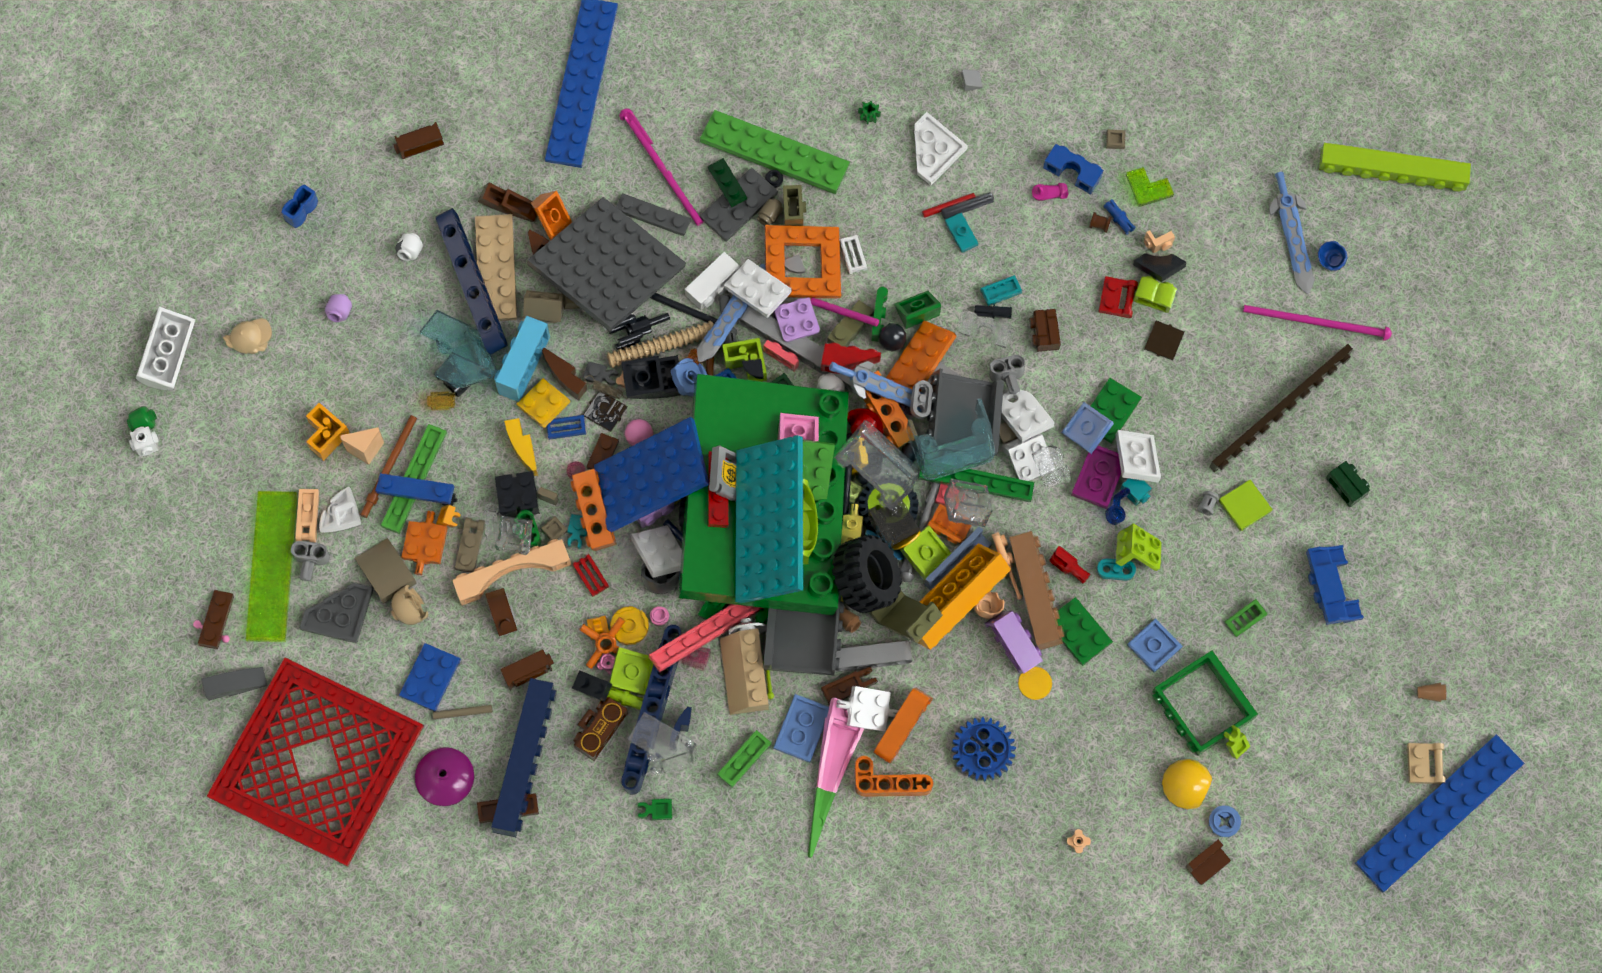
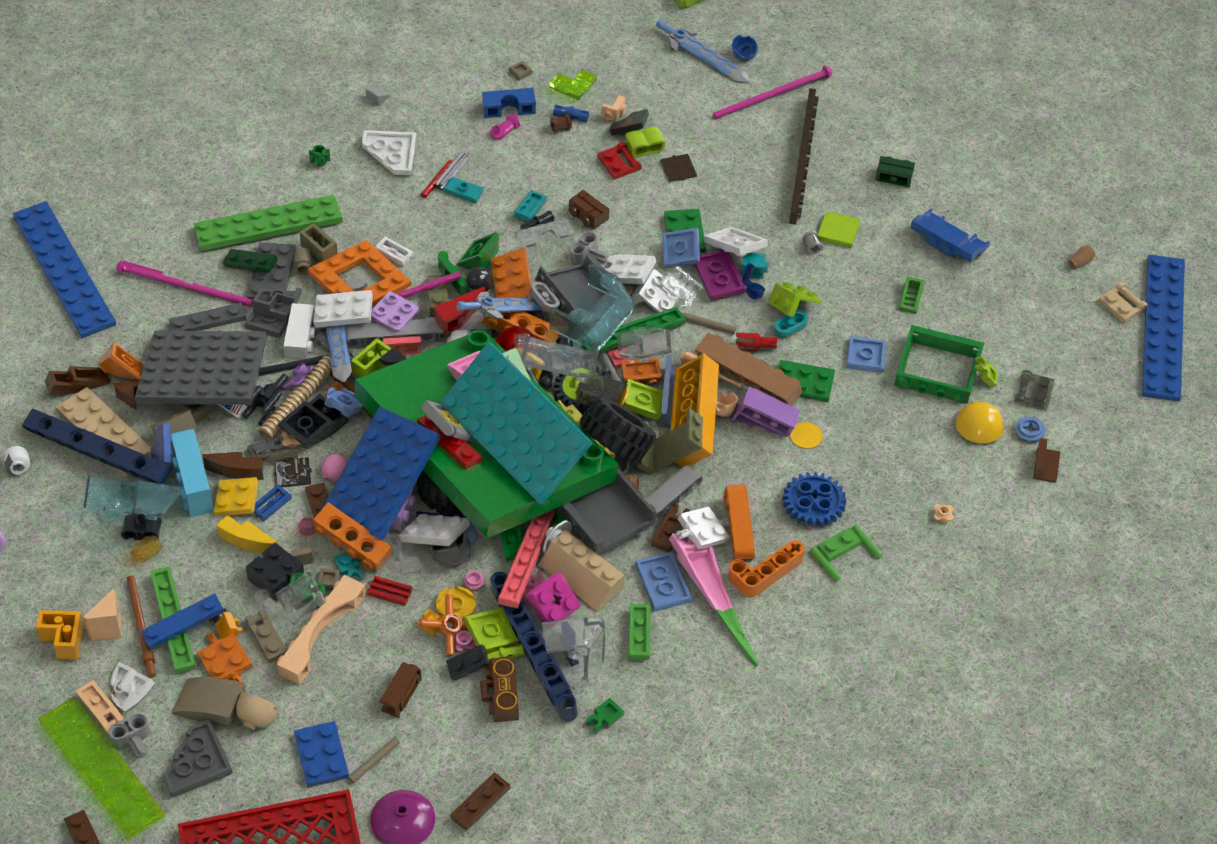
camera: 40 degrees left, 20 degrees down
(501, 611) = (340, 658): reddish brown brick -> none
(515, 320) = (162, 446): none -> blue tile
(523, 758) = (461, 752): dark blue brick -> none
(681, 323) = (298, 375): none -> medium lavender plate
(700, 671) = (542, 597): none -> dark pink brick
(708, 244) = (272, 310): none -> dark grey slope
(776, 173) = (284, 236): black plate -> none
(968, 804) = (839, 545): none -> bright green plate
(1050, 516) = (709, 323): none -> dark tan bar
(1268, 793) = (1041, 390): none -> clear smoke plate

